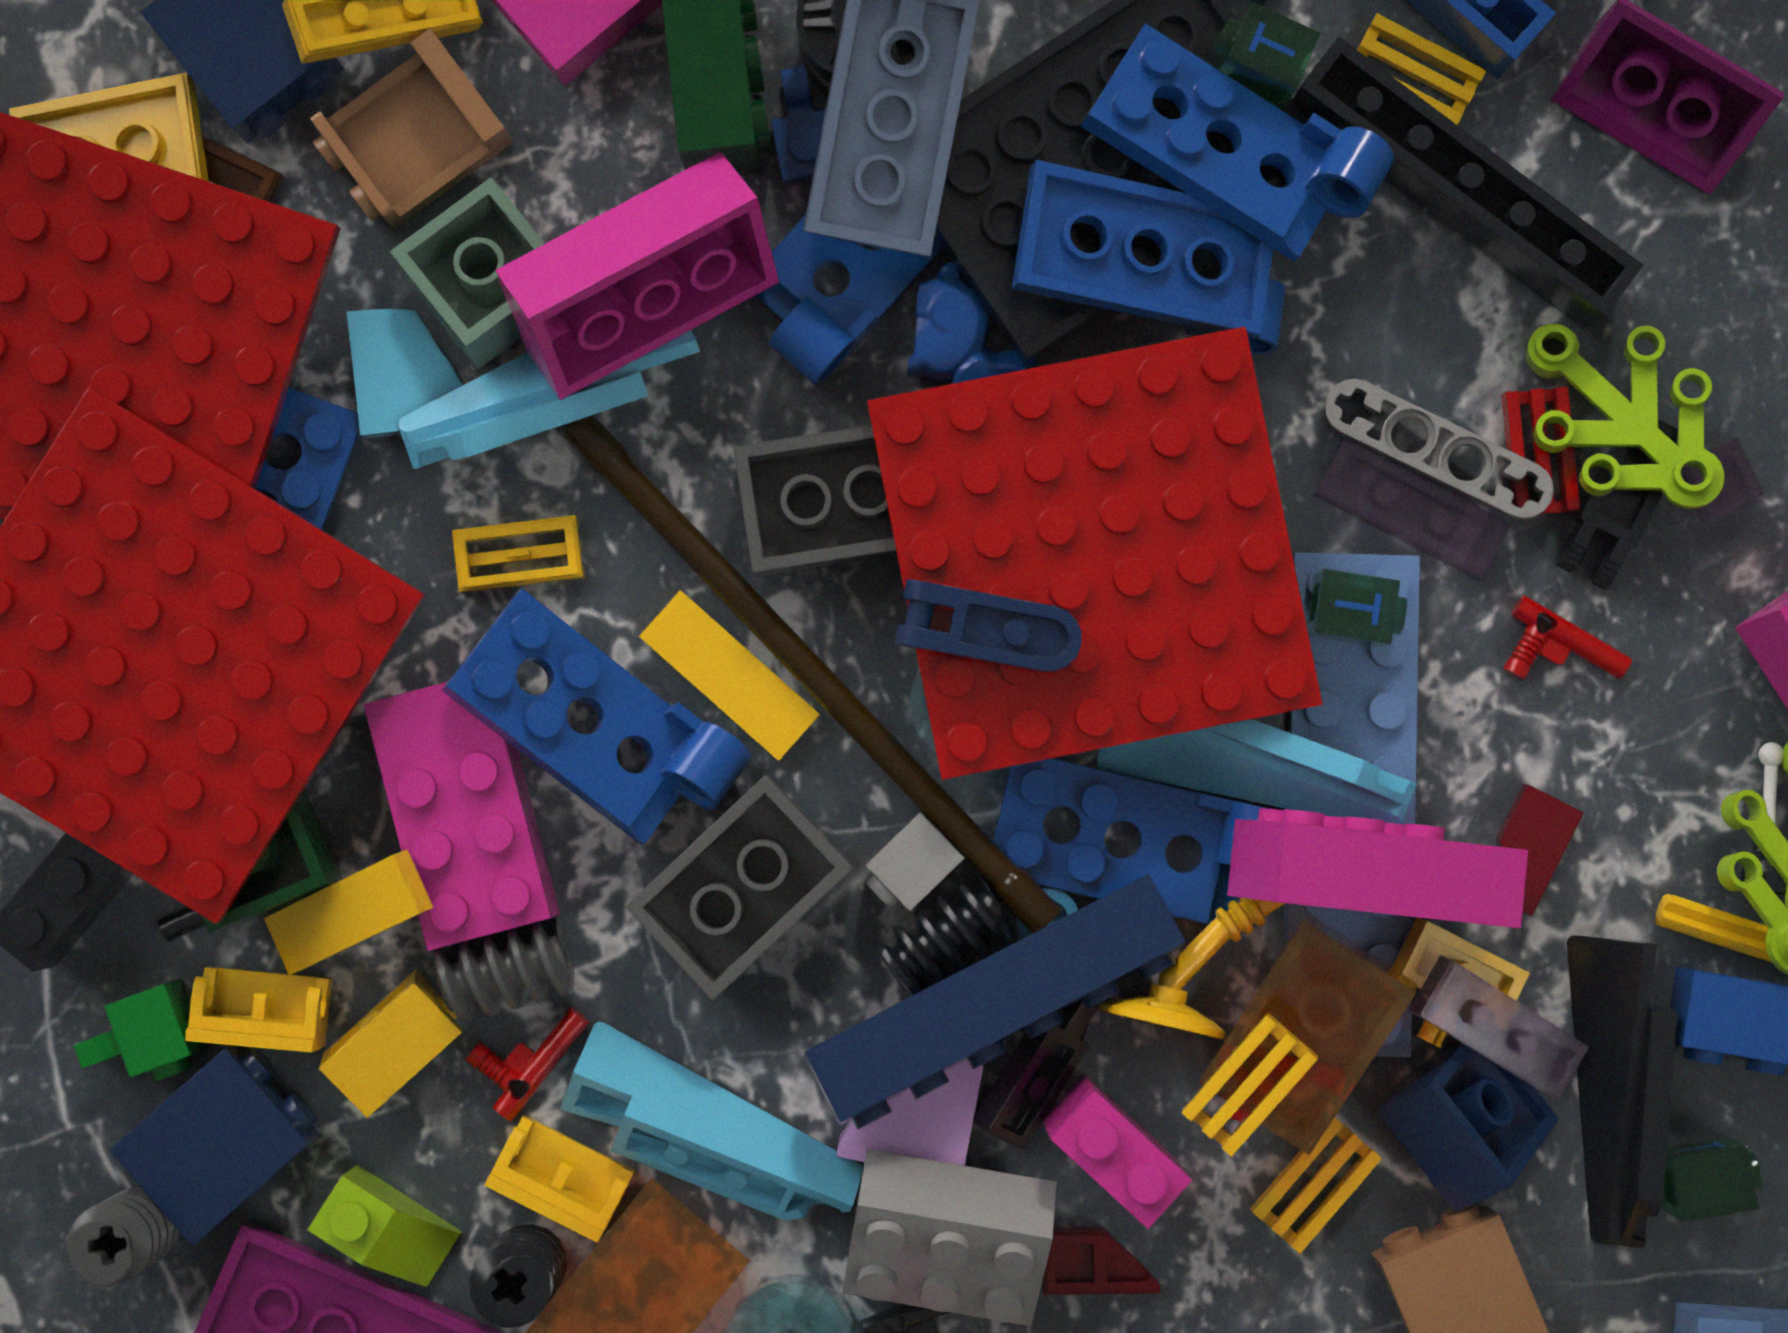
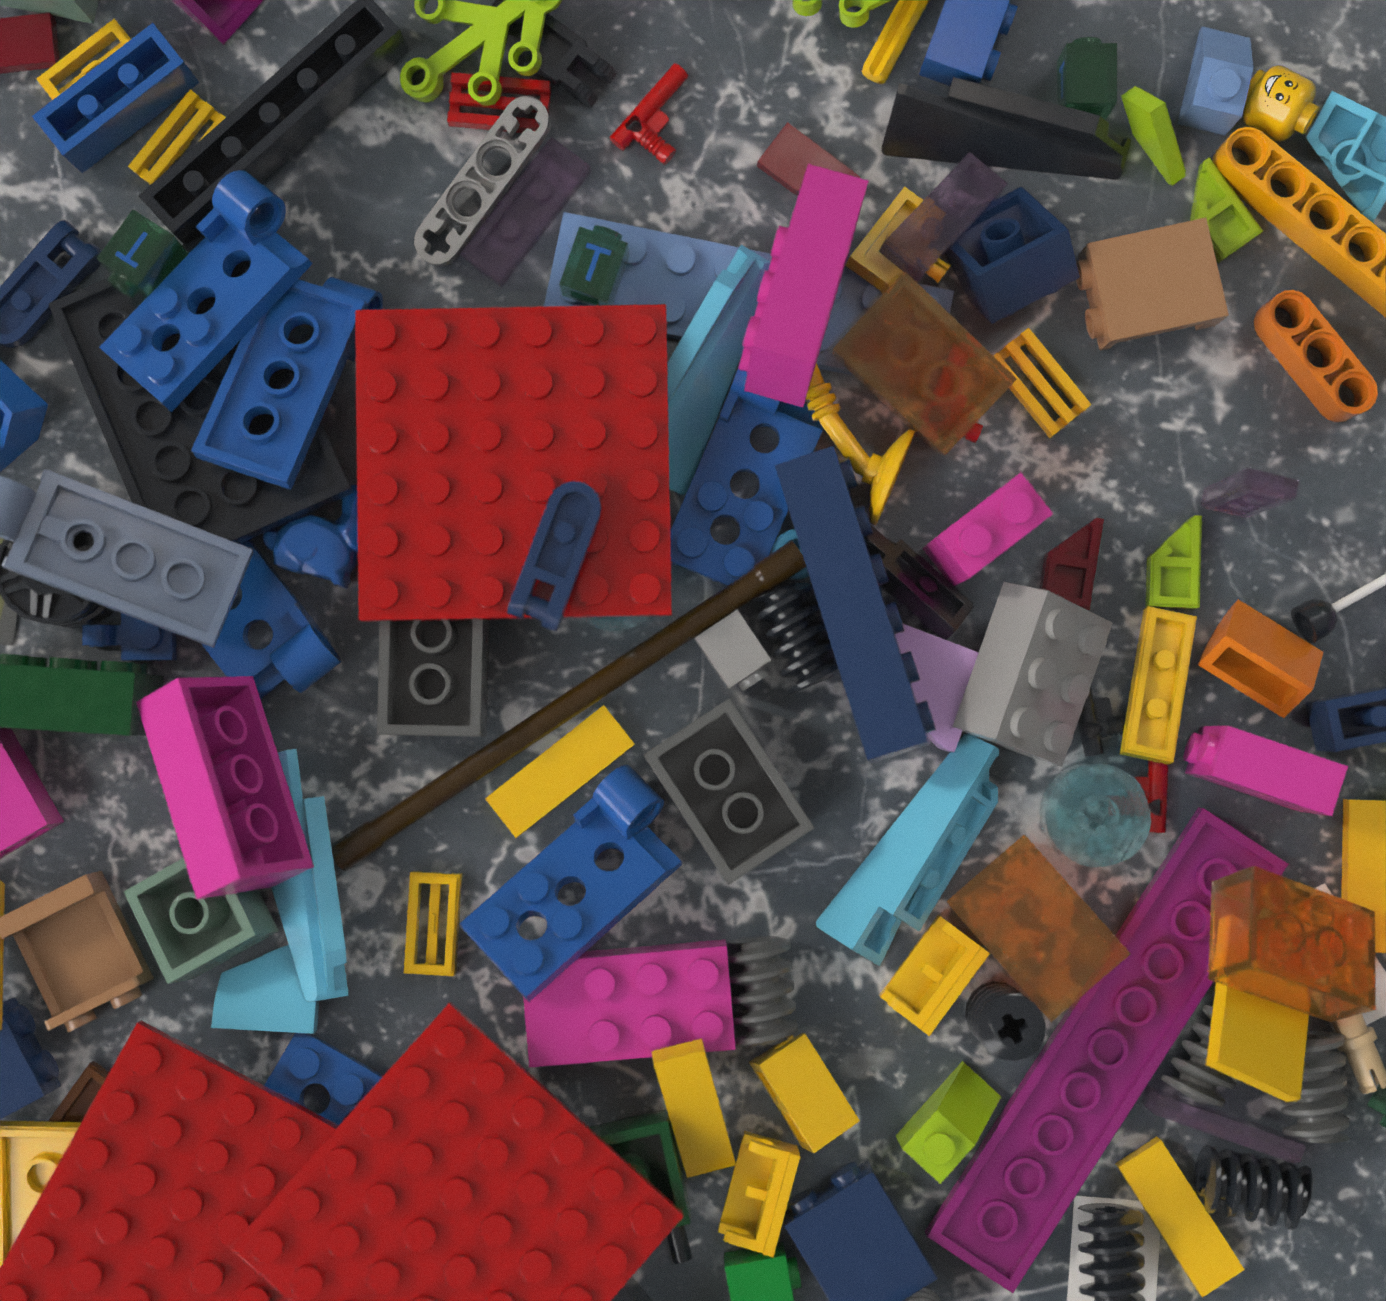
camera: 85 degrees left, 0 degrees up
(526, 1063) = (839, 985): red hose -> none
(1213, 1125) = (981, 448): yellow tile -> none
(1656, 1275) = (1154, 132): none -> lime tile

